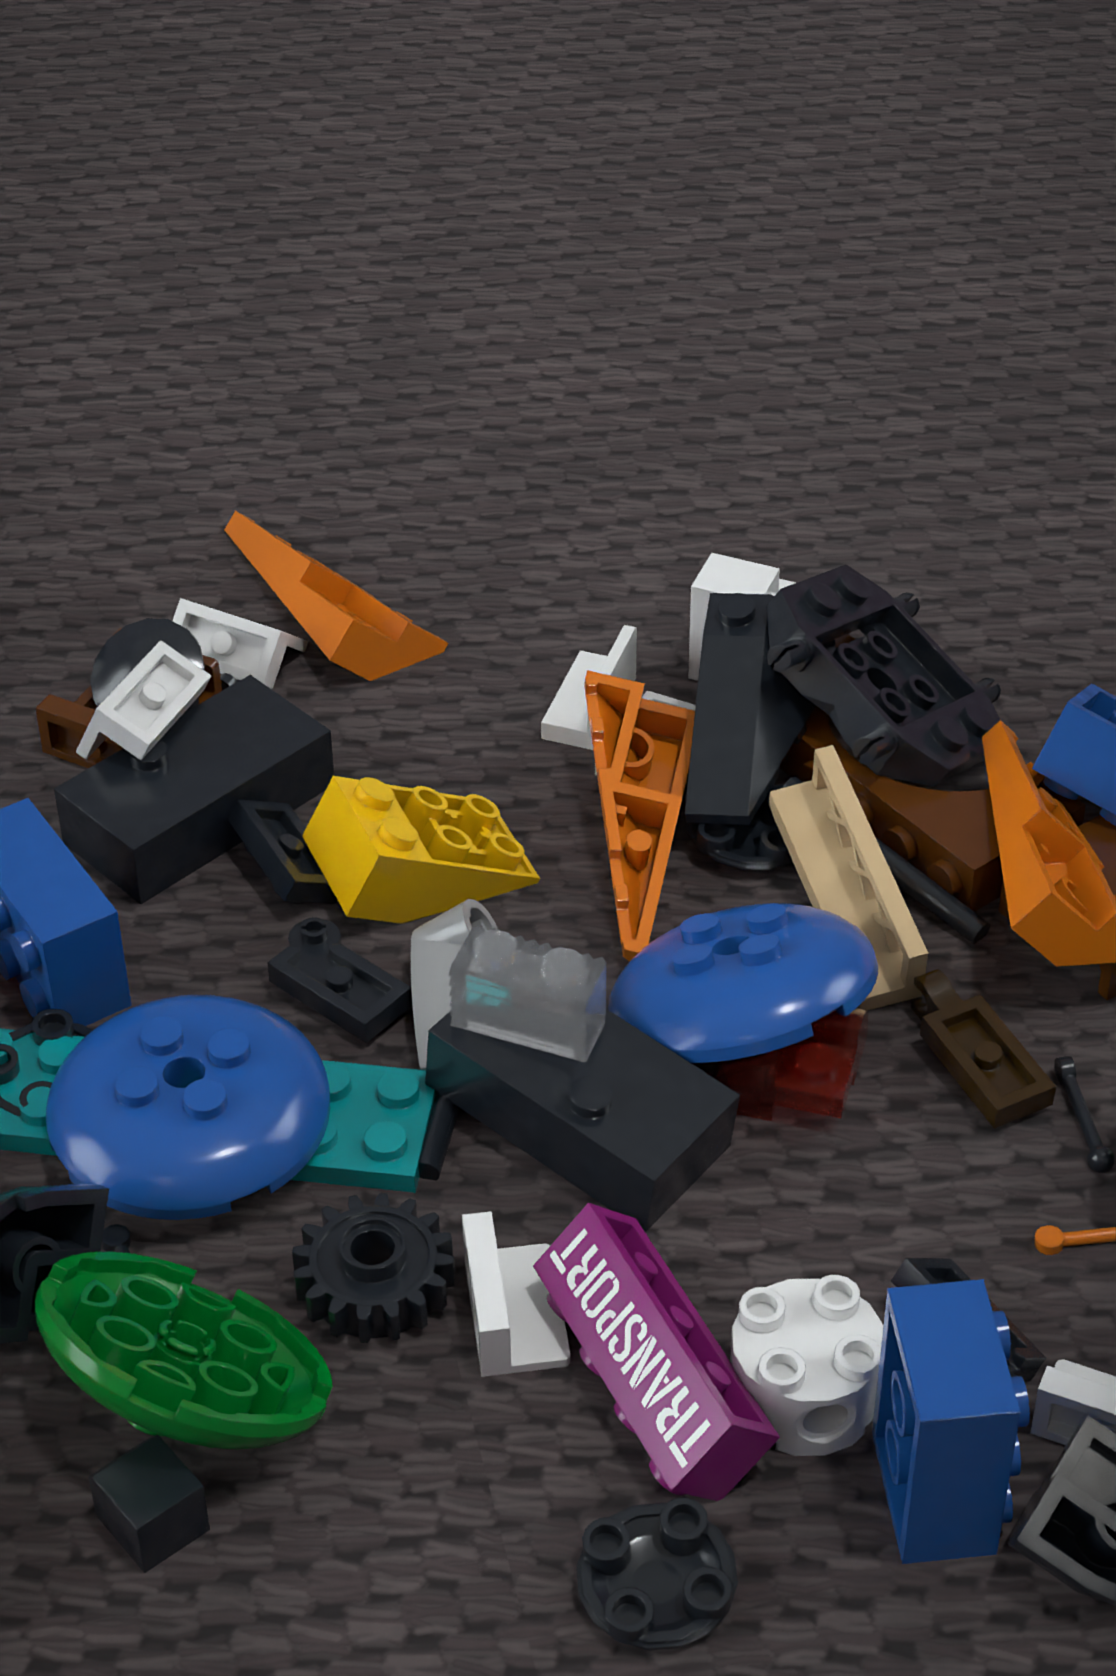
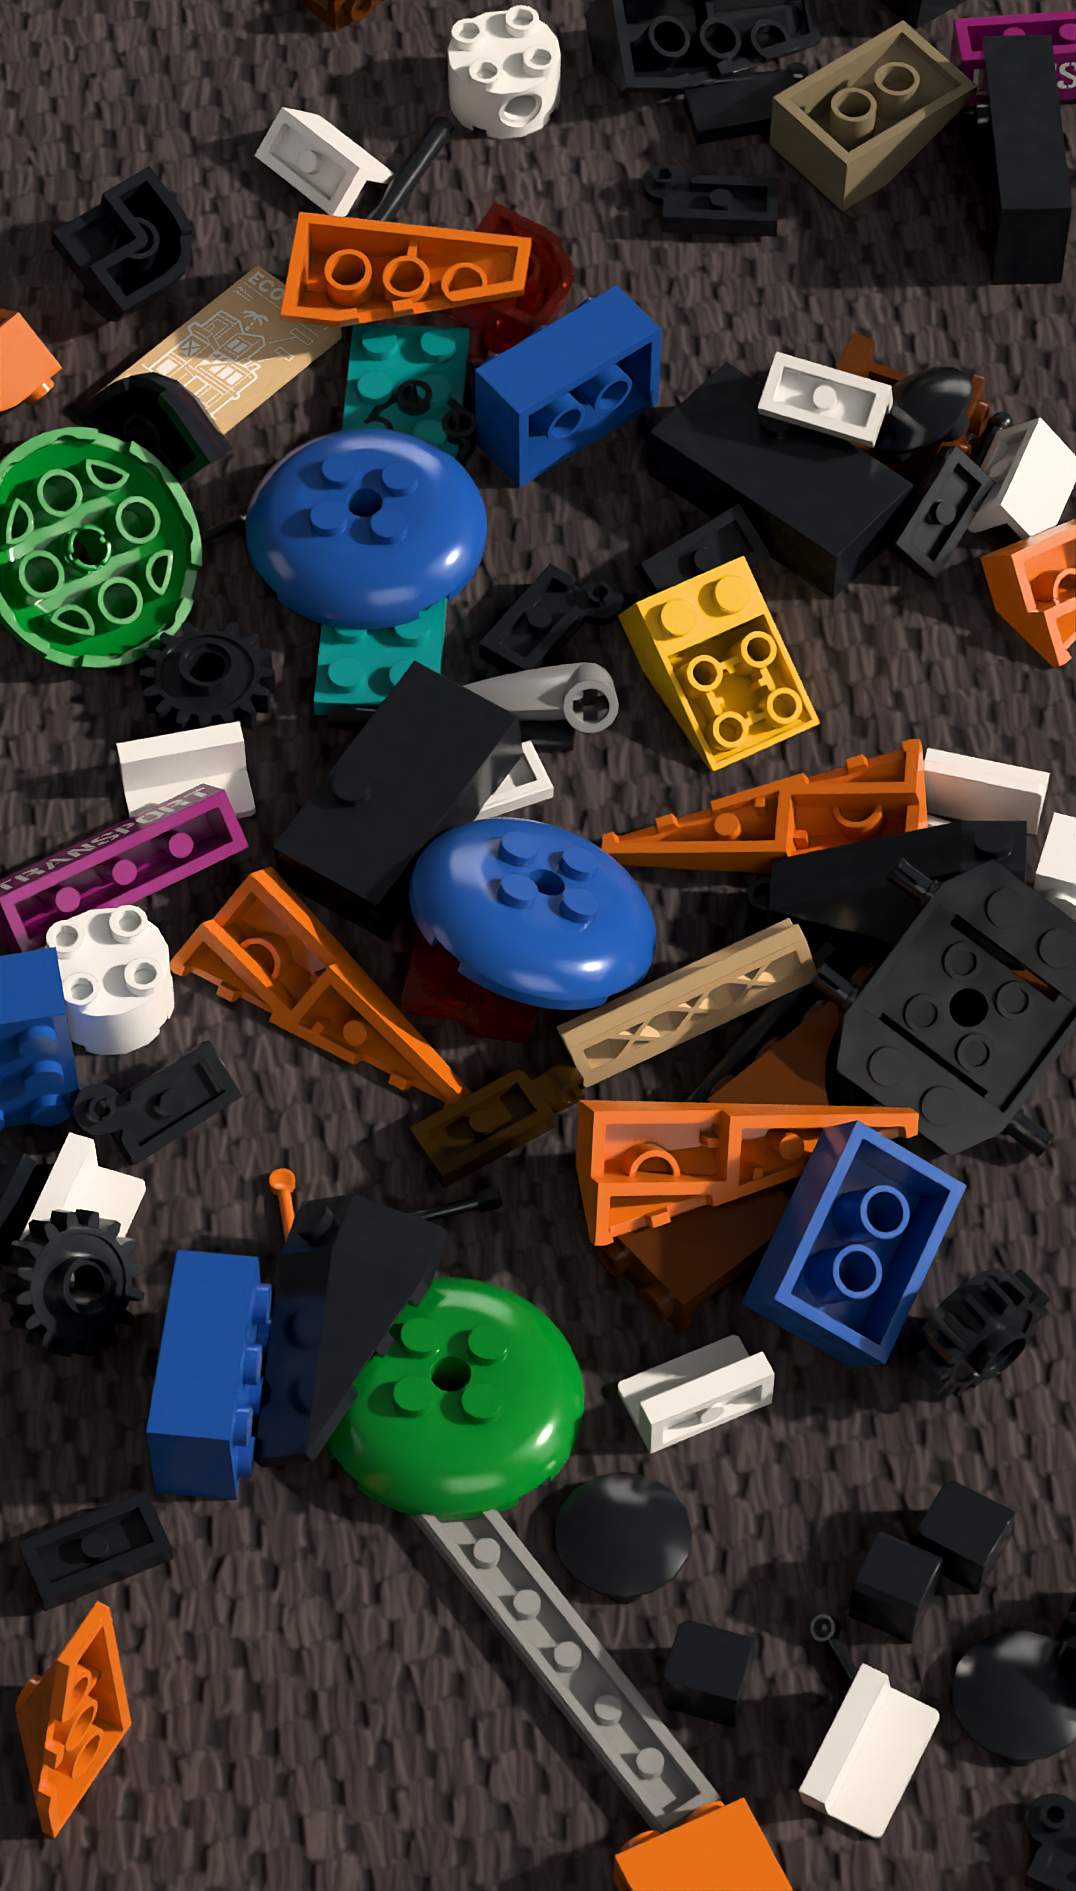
camera: 85 degrees right, 15 degrees up
(244, 660) = (939, 512): none -> black plate
(528, 993) = (426, 710): clear brick -> none
(784, 1208) = (289, 964): none -> orange wedge

